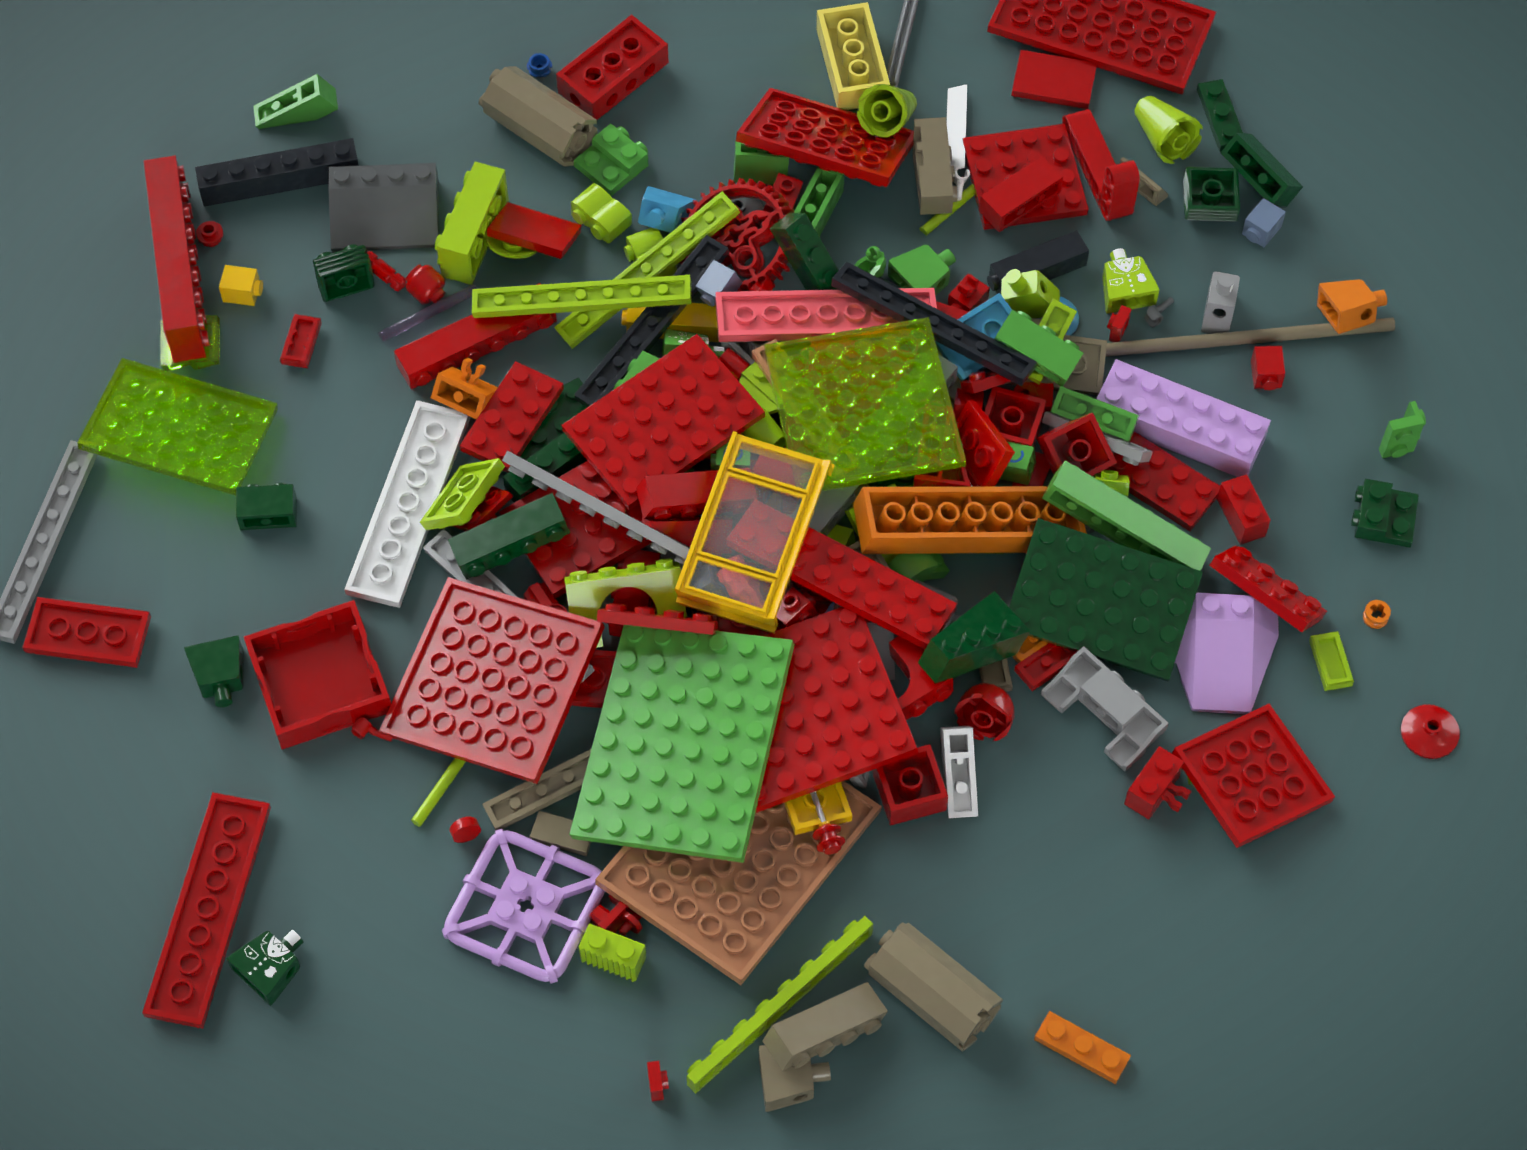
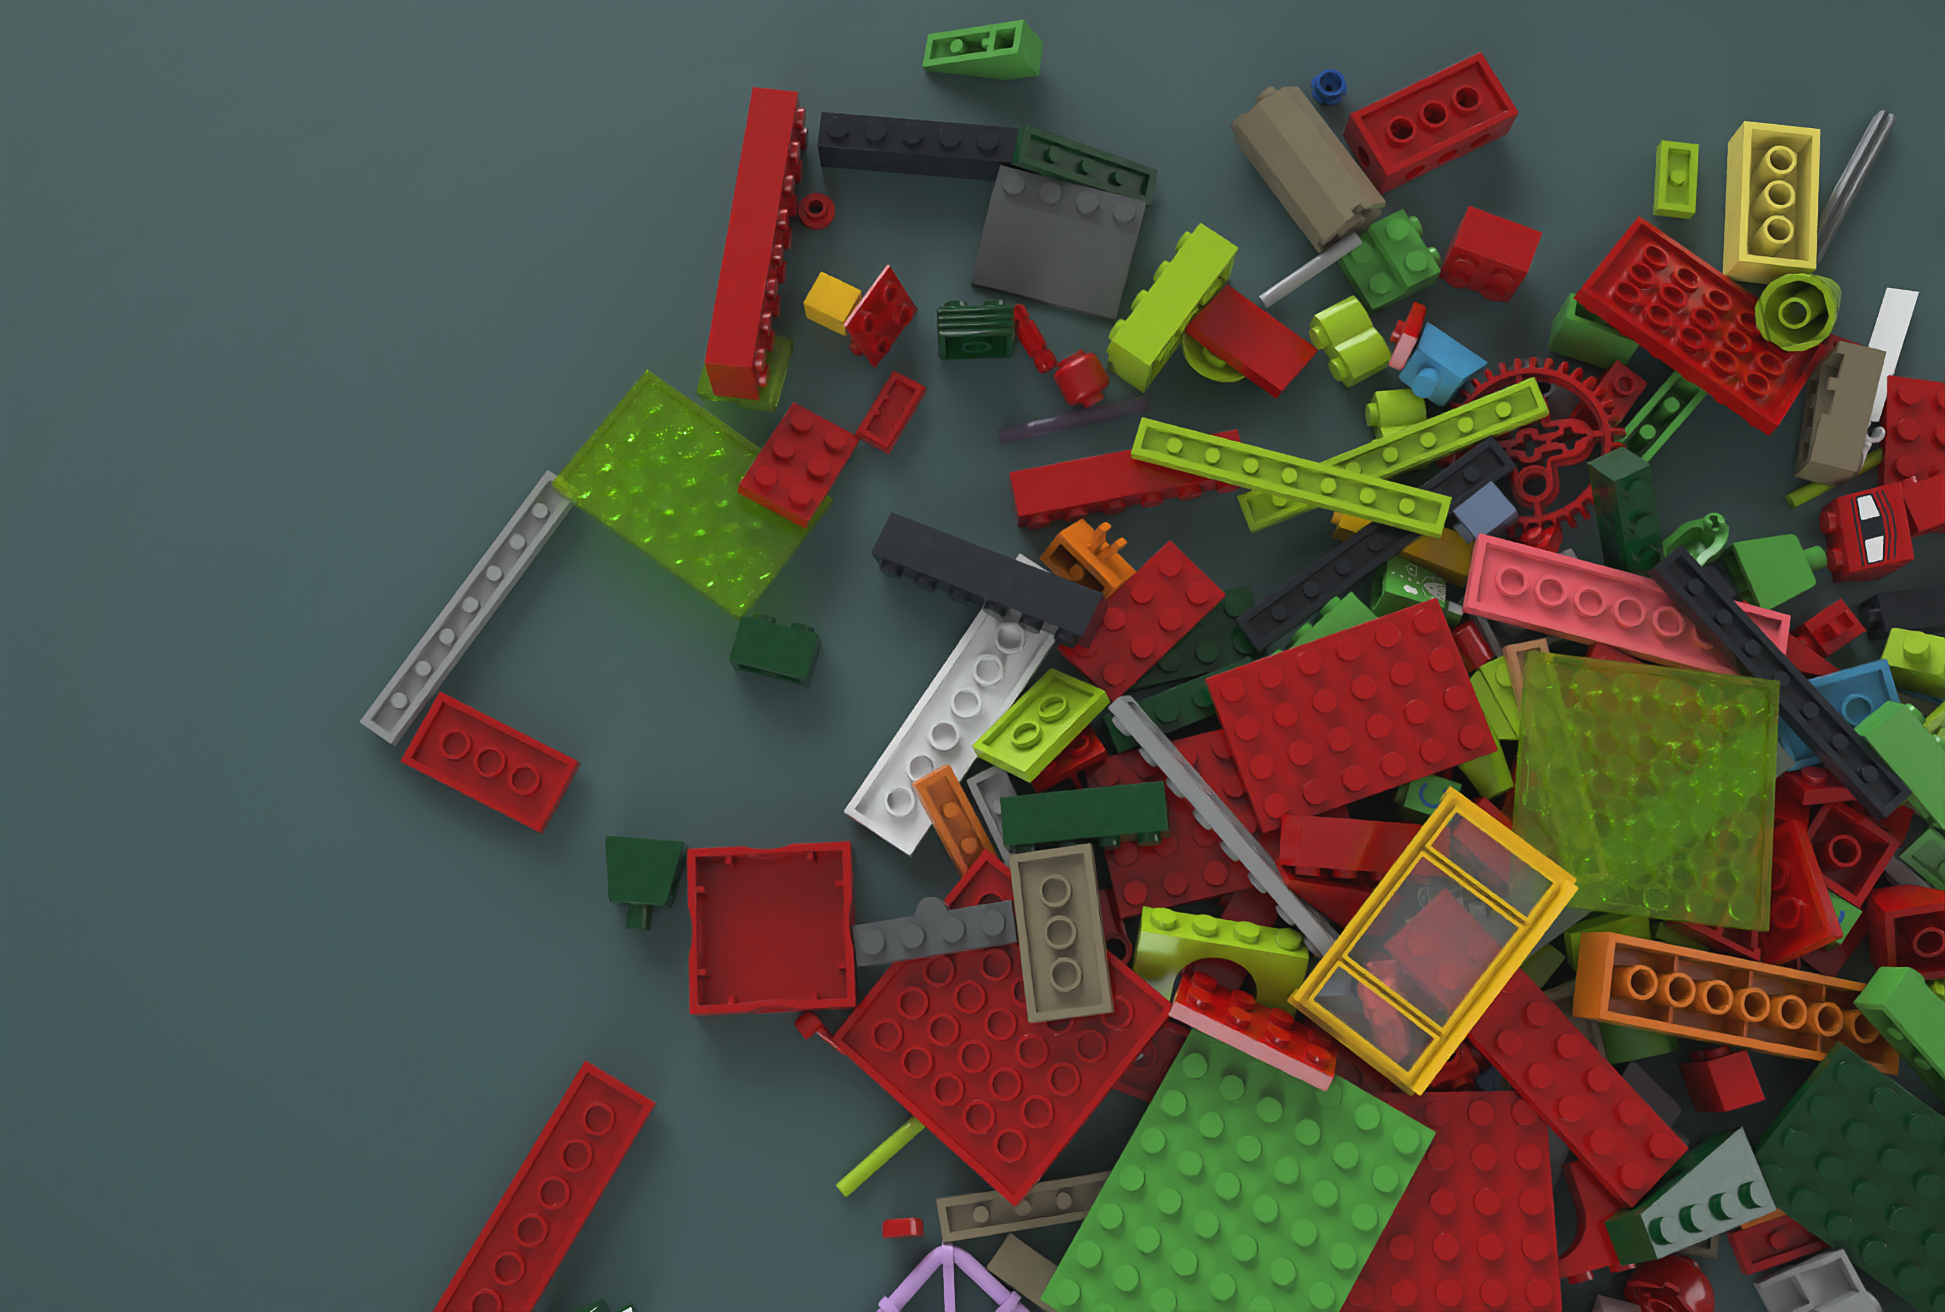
camera: 20 degrees right, 15 degrees up
(247, 387) = (798, 465): none -> red plate
(274, 283) = (879, 317): none -> red hinge
(383, 151) = (1082, 164): none -> dark green plate
(400, 417) = (990, 580): none -> black brick
(418, 567) = (952, 817): none -> orange plate
(429, 637) = (935, 932): none -> dark grey hinge
(513, 603) = (1061, 933): none -> dark tan plate
(560, 177) = (1310, 269): none -> light grey bar
(635, 195) = (1406, 335): none -> red plate
(675, 134) = (1489, 255): none -> red brick
(788, 60) = (1676, 179): none -> lime plate
(973, 233) = (1867, 534): none -> red slope
(976, 573) = (1720, 1079): none -> red brick

